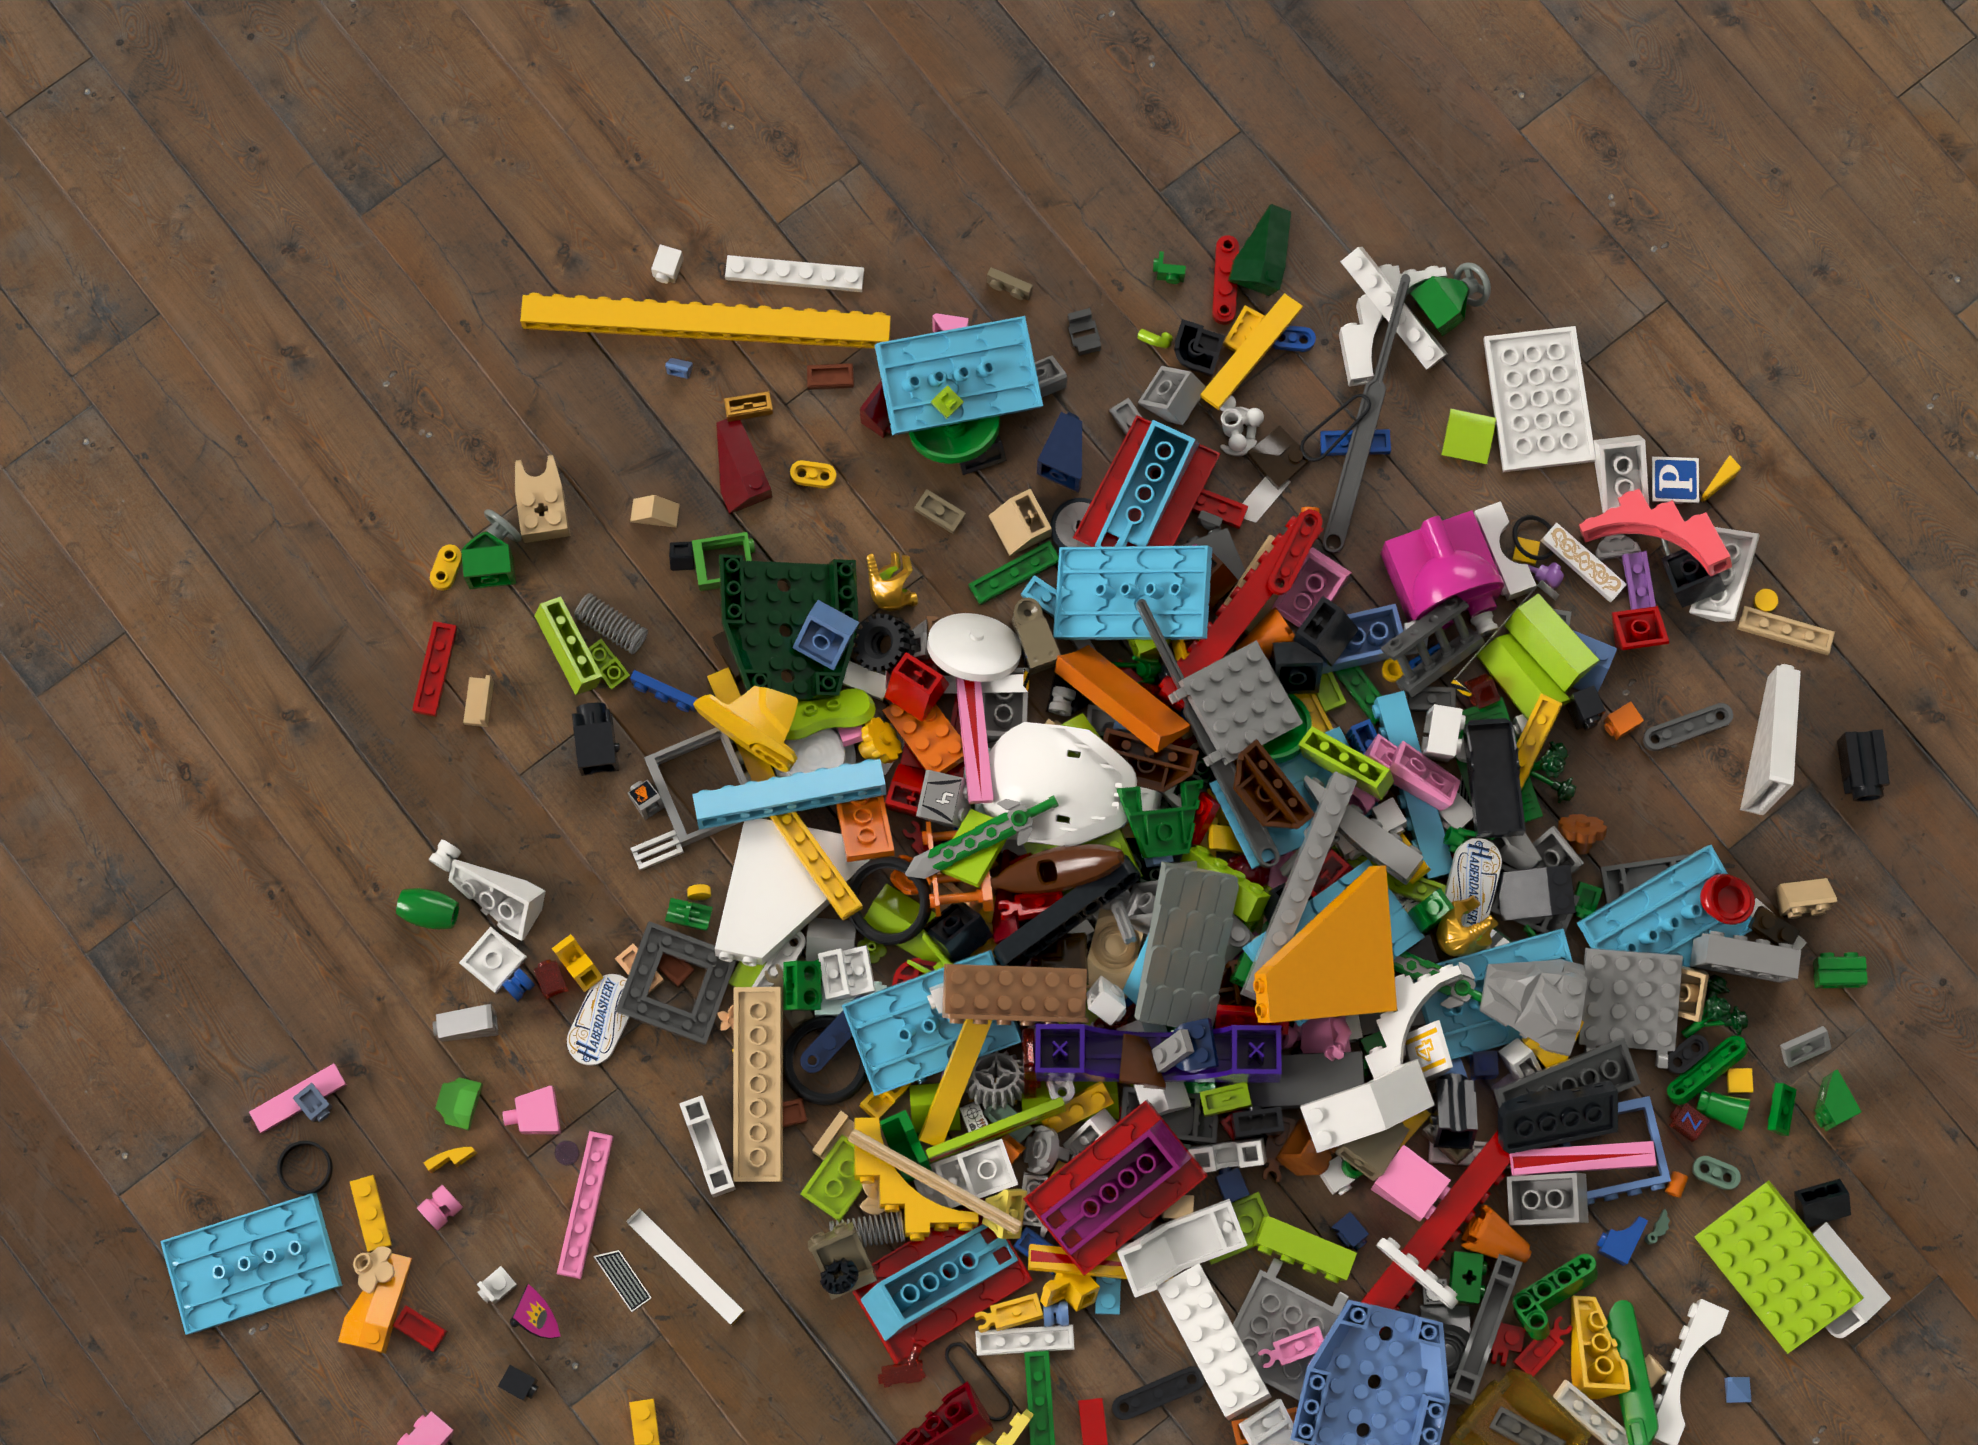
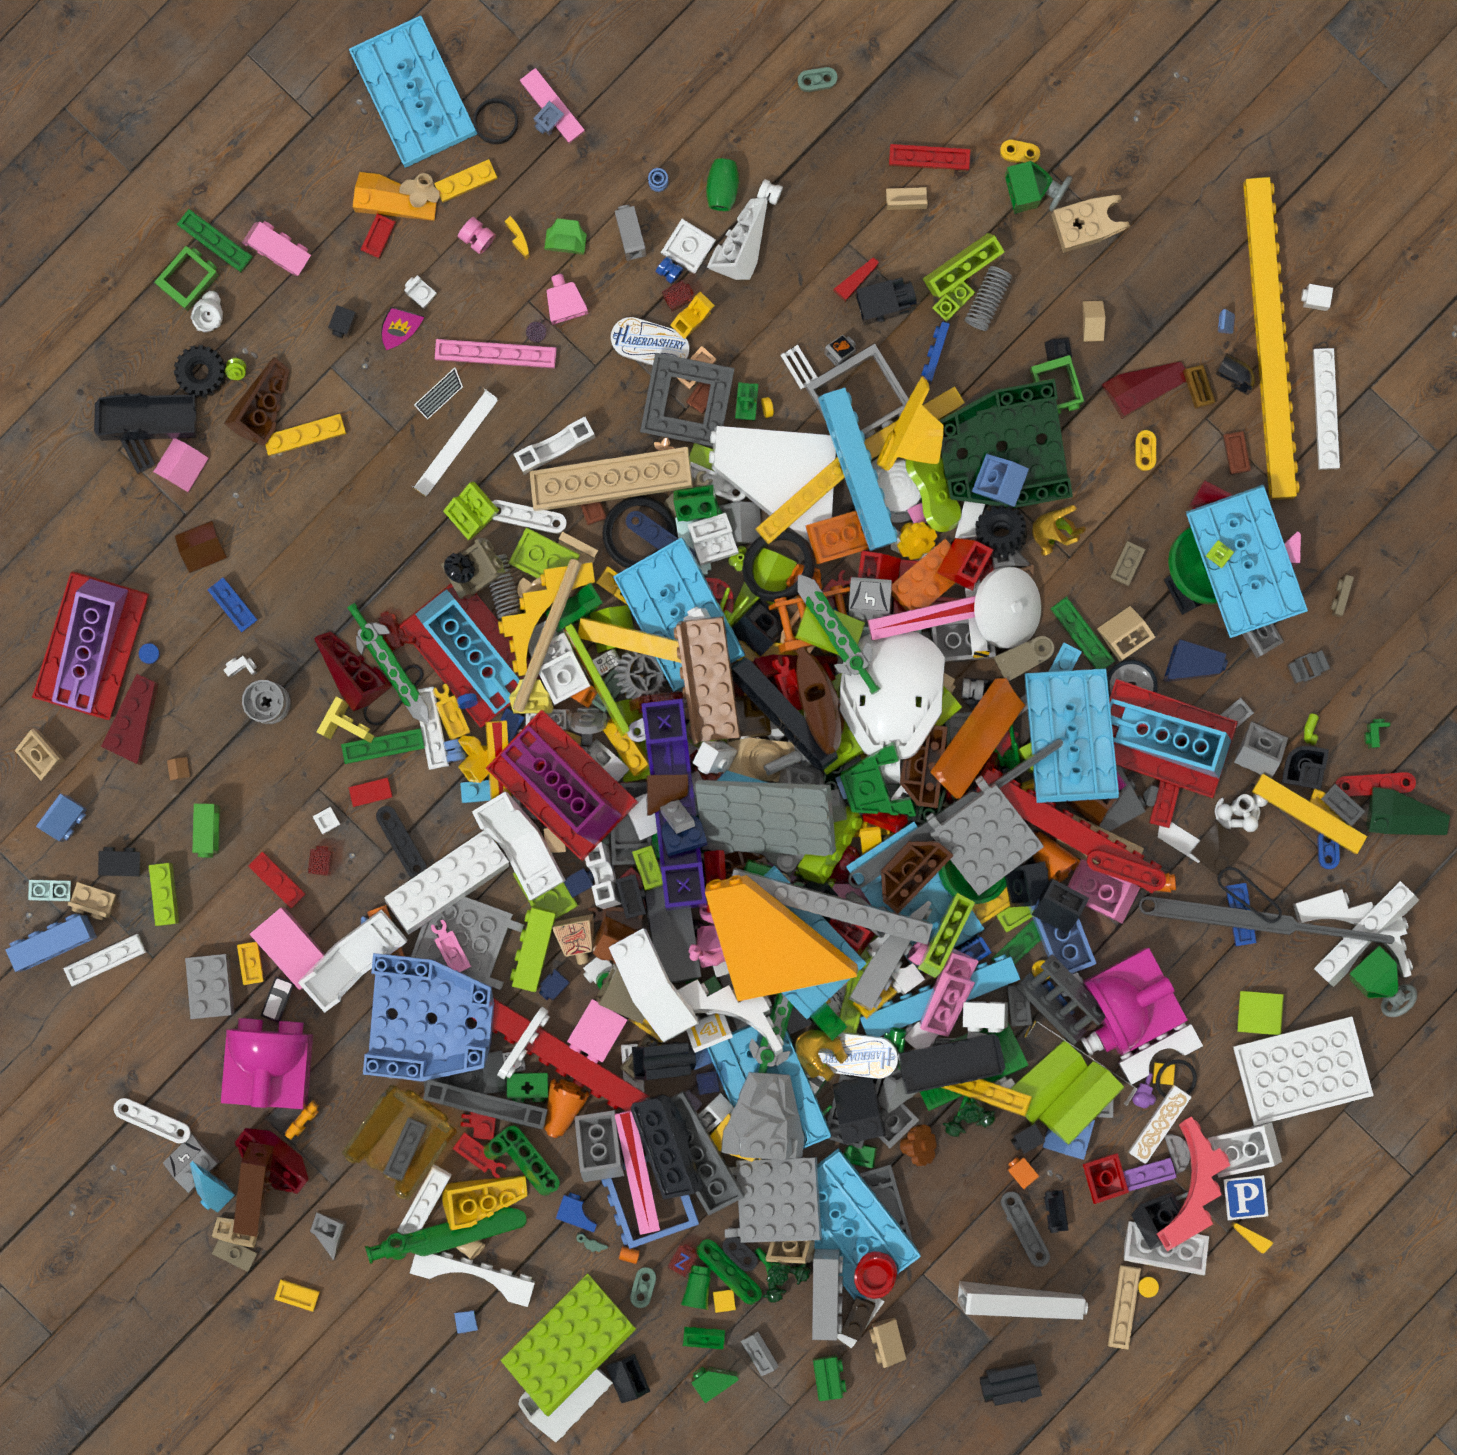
camera: 85 degrees right, 10 degrees up
(321, 784) = (816, 77): none -> sand green plate
(412, 986) = (659, 183): none -> medium blue wheel
(570, 779) = (850, 284): none -> red piece
(740, 360) = (1237, 373): none -> black brick
(770, 1257) = (471, 510): none -> lime slope
(787, 1192) = (527, 517): none -> white plate
(905, 1398) = (371, 637): none -> sword
(999, 1290) = (467, 701): none -> blue tile
(1246, 314) = (1342, 805): none -> dark grey plate
(1296, 1196) = (576, 936): none -> tan torso
(1483, 691) = (1030, 1047): clear red brick -> none
(1671, 688) = (1057, 1211): none -> black hinge

